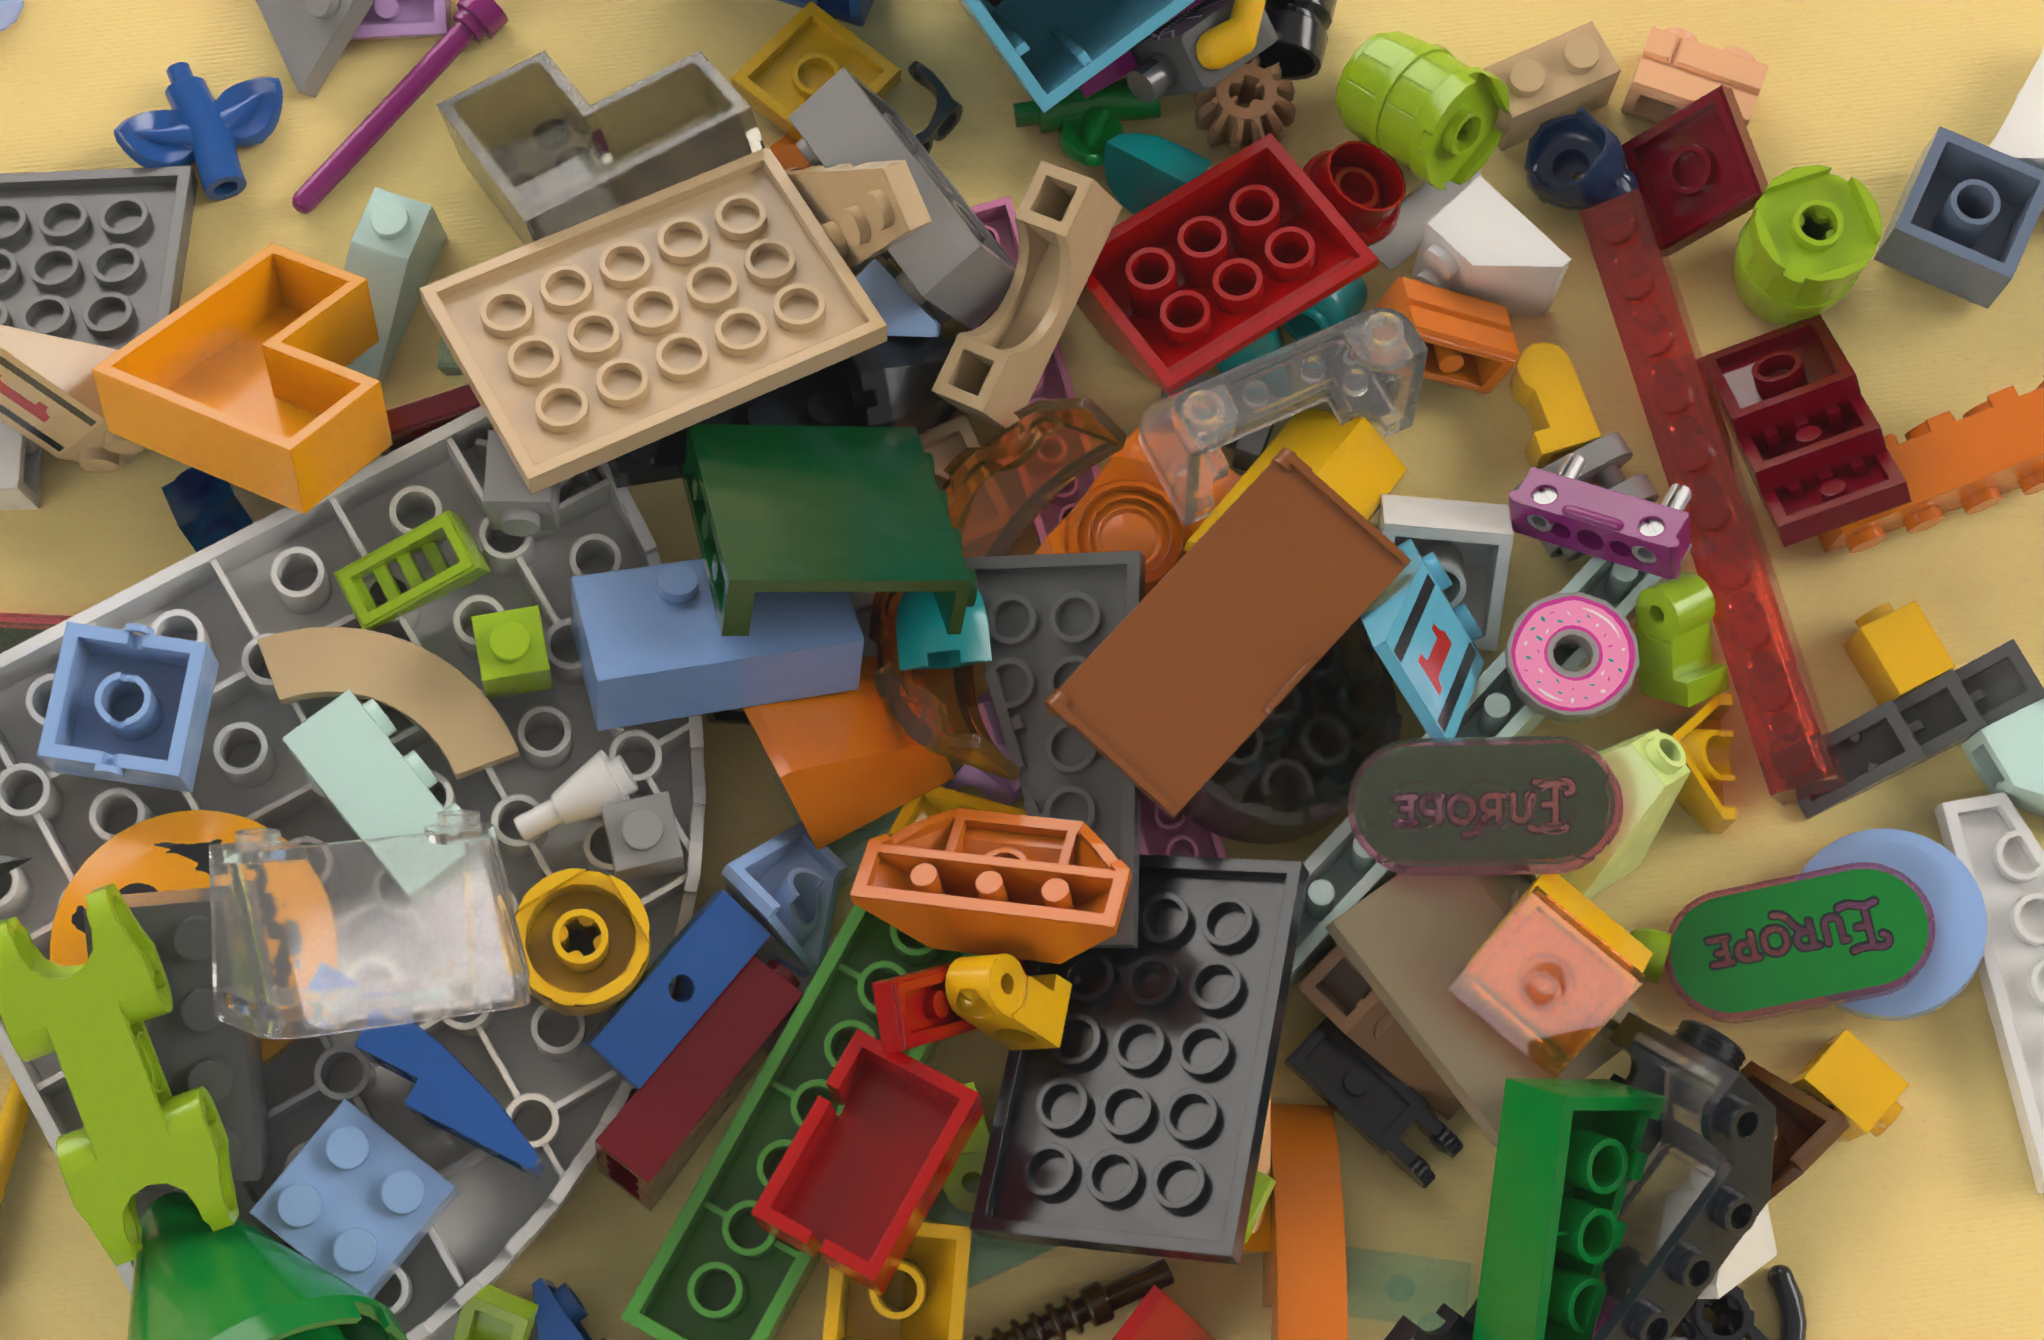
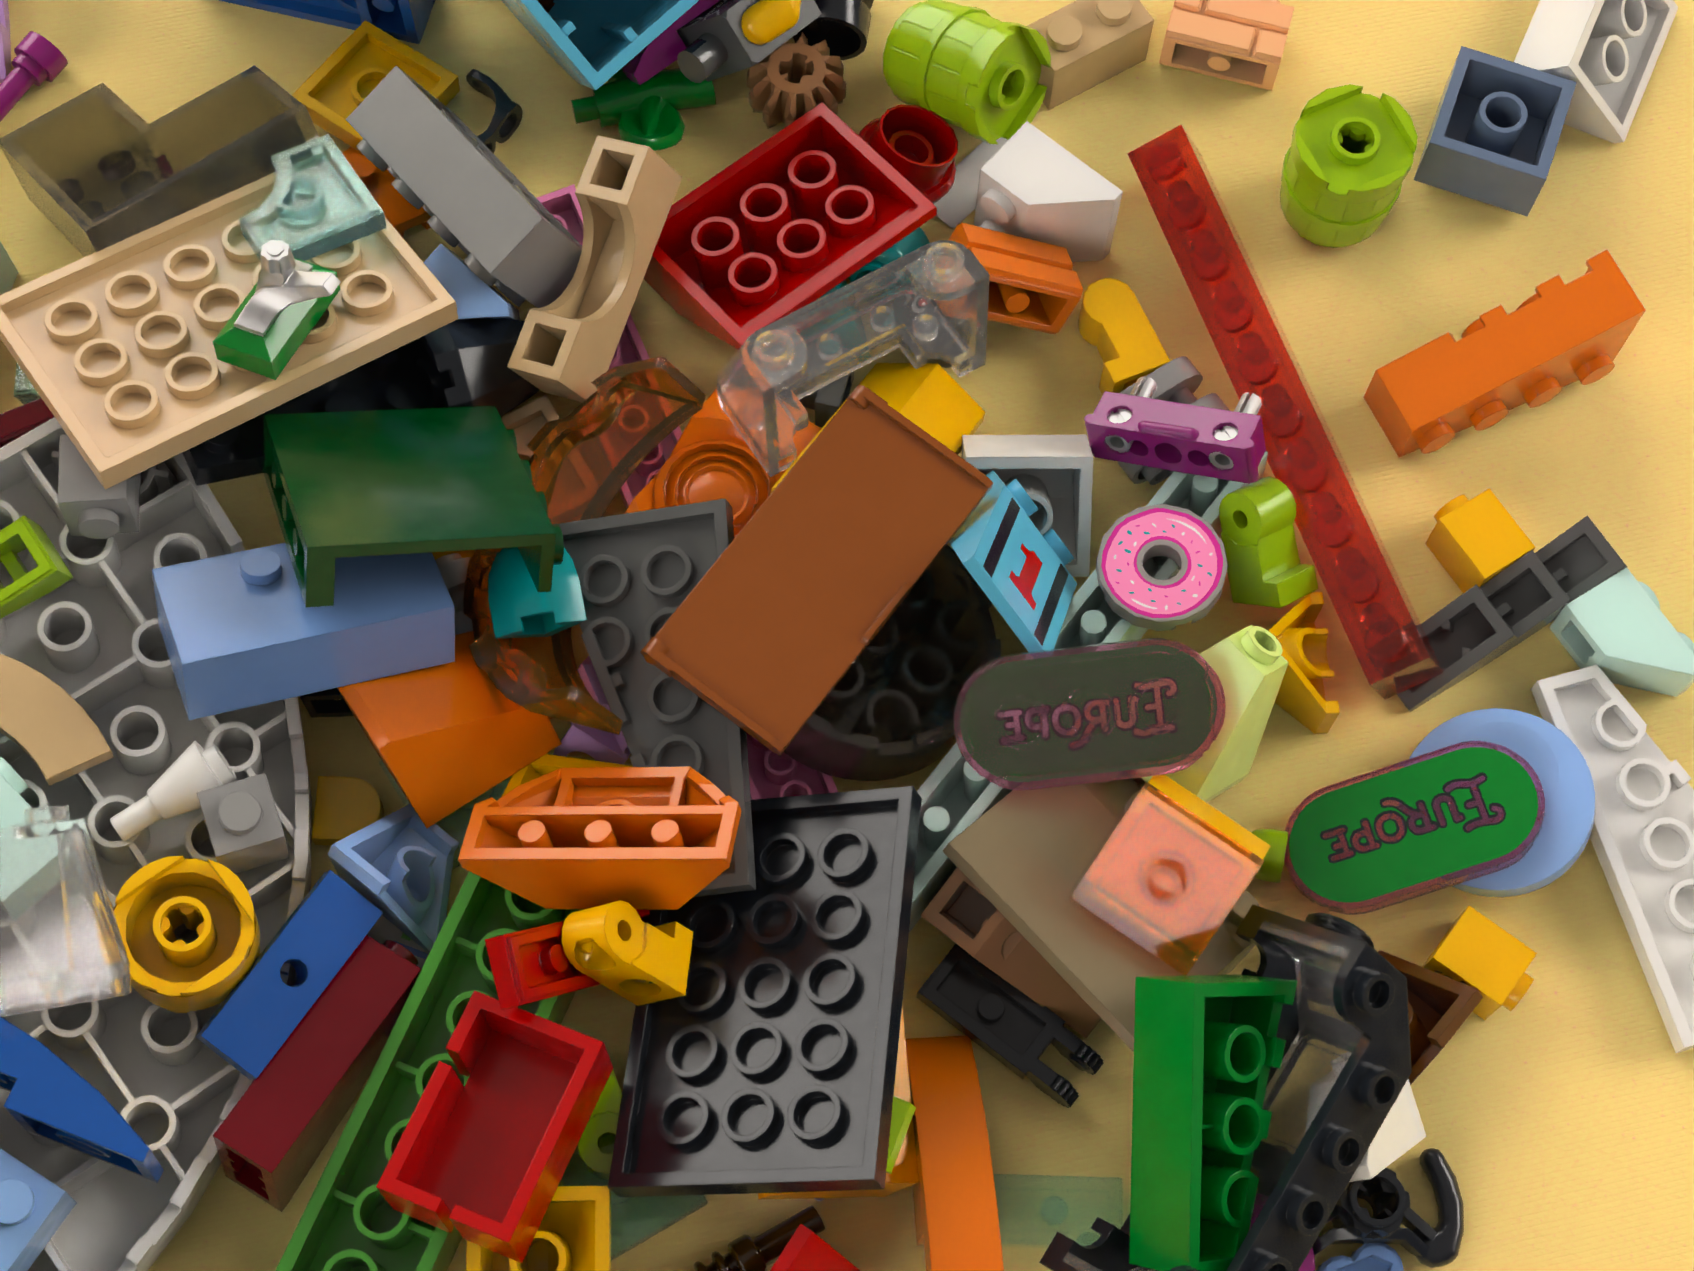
camera: 10 degrees left, 5 degrees down
(512, 652) = (97, 651): lime brick -> none
(710, 326) = (276, 312): none -> piece
(737, 821) = (343, 808): none -> yellow tile
(750, 213) = (313, 203): none -> clear light blue tile
(863, 206) = (426, 191): tan wing -> none
(1148, 168) = (704, 147): teal brick -> none
(1574, 147) = (1120, 110): dark blue piece -> none
(1697, 168) = (1236, 106): dark red tile -> none
(1805, 430) = (1366, 338): dark red slope -> none

